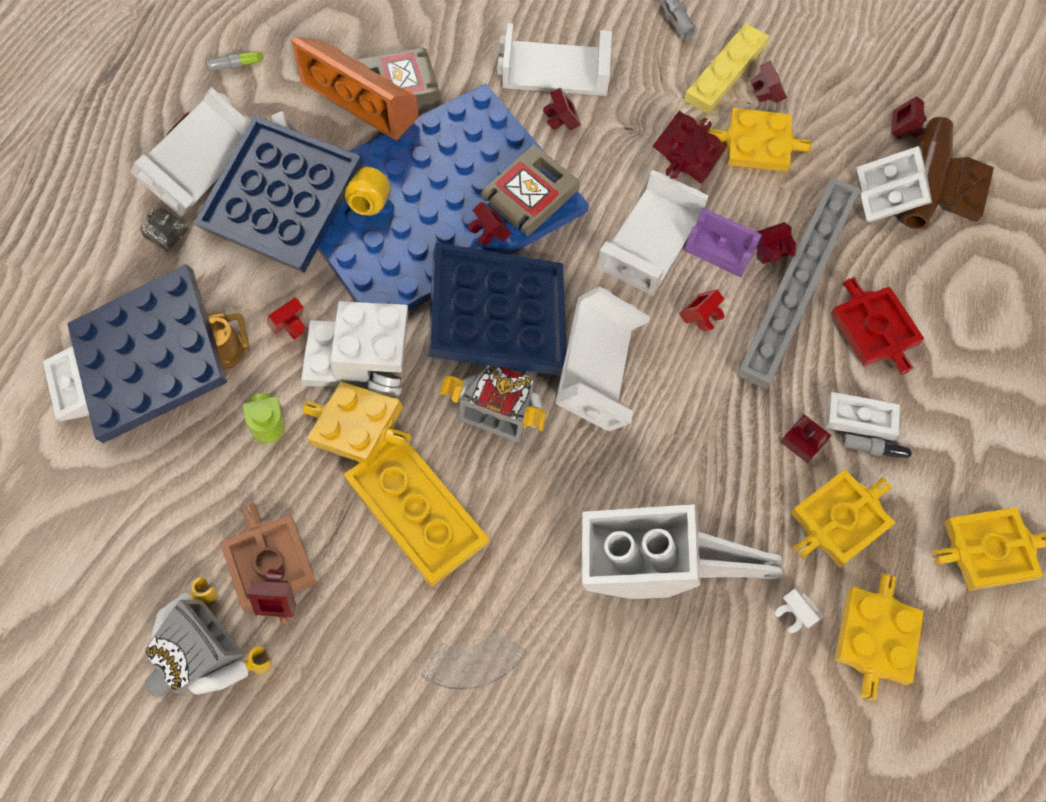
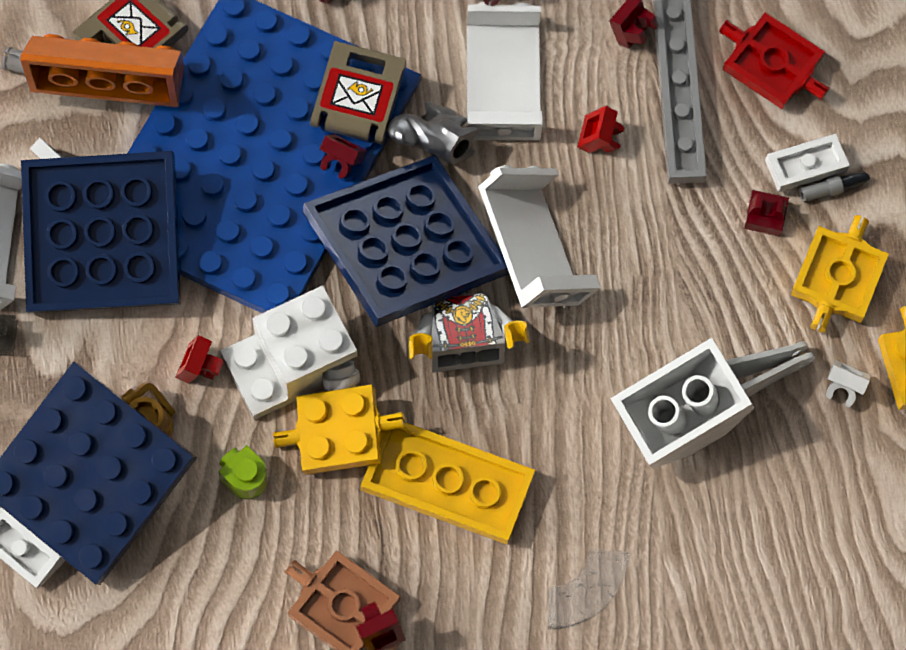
camera: 30 degrees left, 5 degrees up
(367, 191) = (196, 183): yellow head -> none
(577, 251) = (436, 132): none -> flat silver animal
(722, 242) = (579, 48): medium lavender hinge -> none

